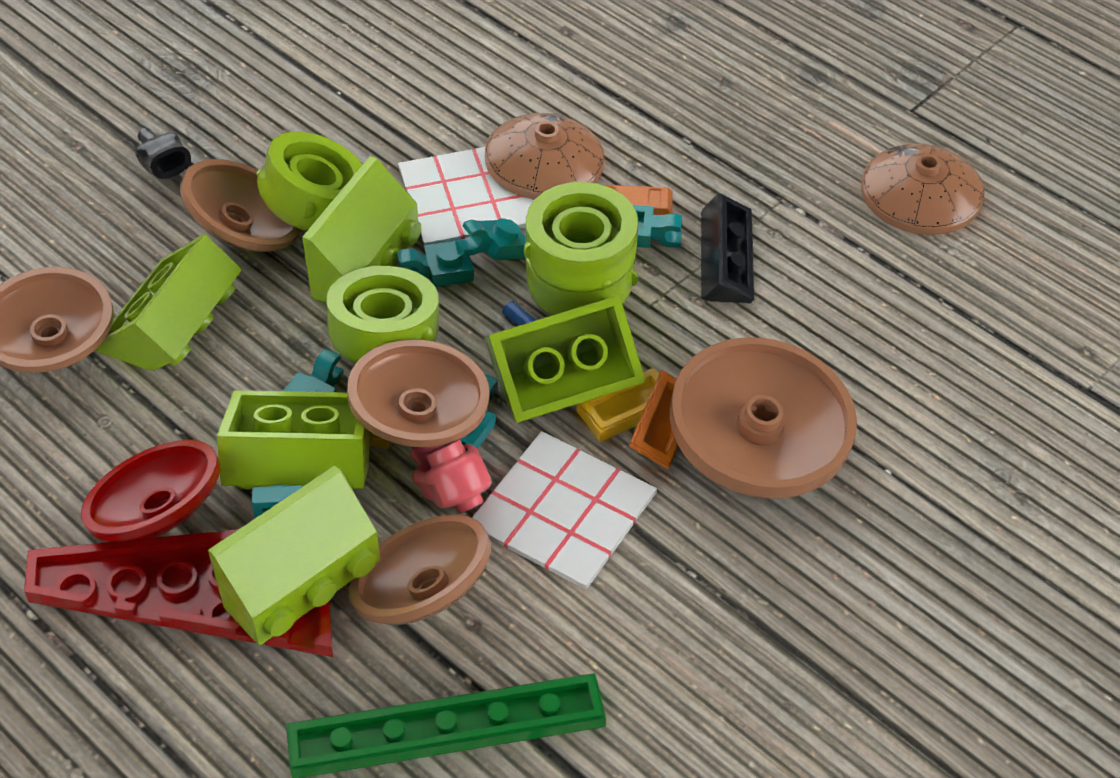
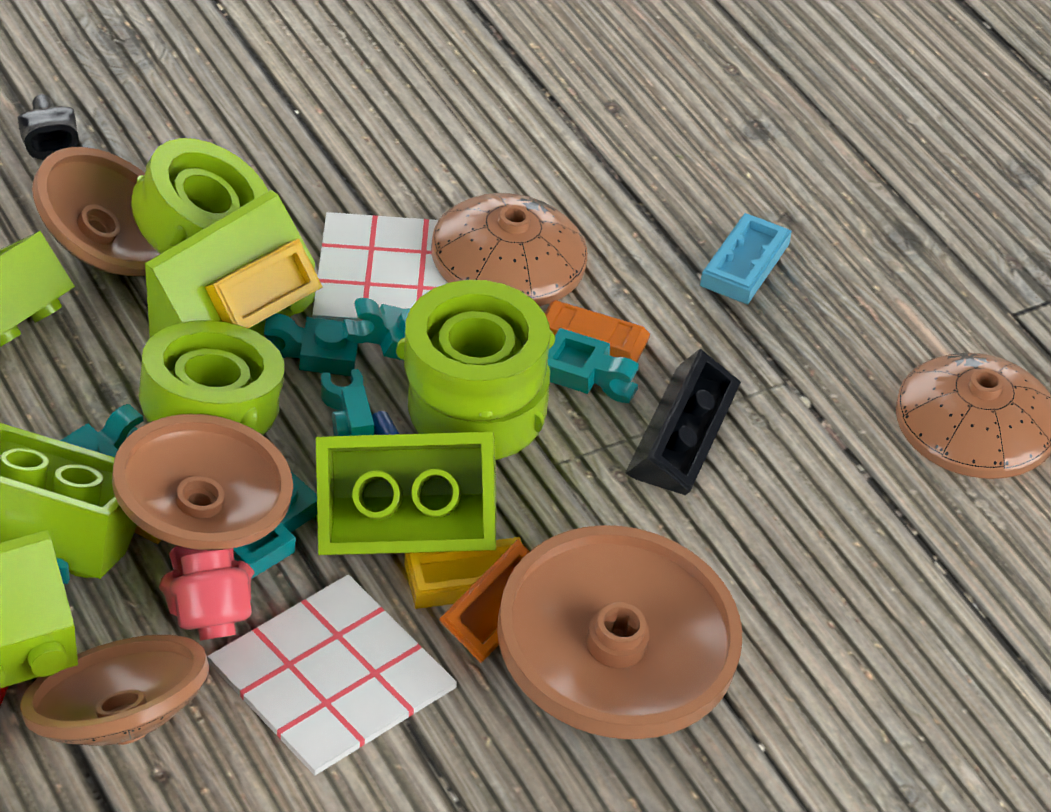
camera: 15 degrees right, 5 degrees down
(390, 230) = (264, 286): none -> yellow tile
(496, 310) = (351, 401): none -> teal plate
(715, 118) = (745, 258): none -> medium azure plate

